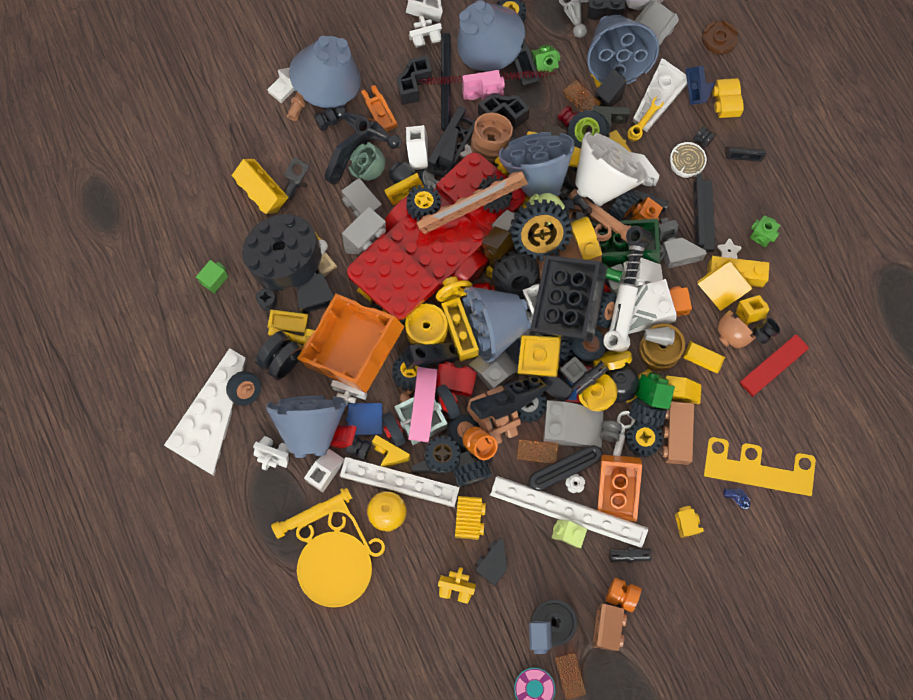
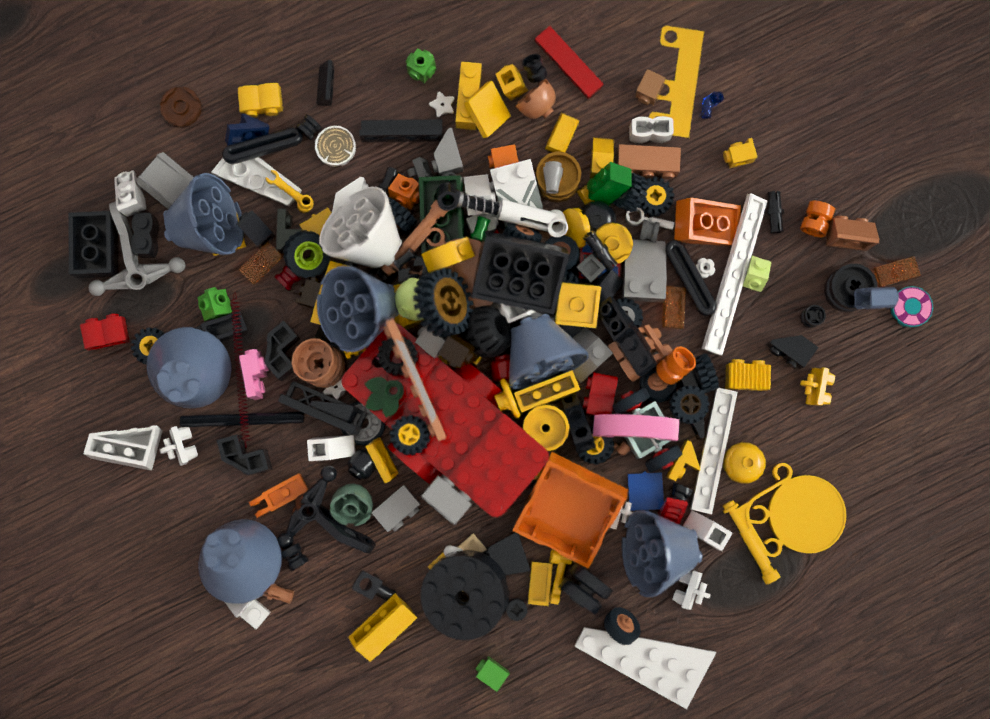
camera: 95 degrees left, 10 degrees up
(457, 181) = (381, 397): none -> dark green plate
(529, 584) = (816, 314): none -> black wheel
(686, 97) = (262, 145): none -> black piece
(710, 439) = (647, 129): none -> white brick
(751, 438) = (650, 87): none -> medium nougat brick

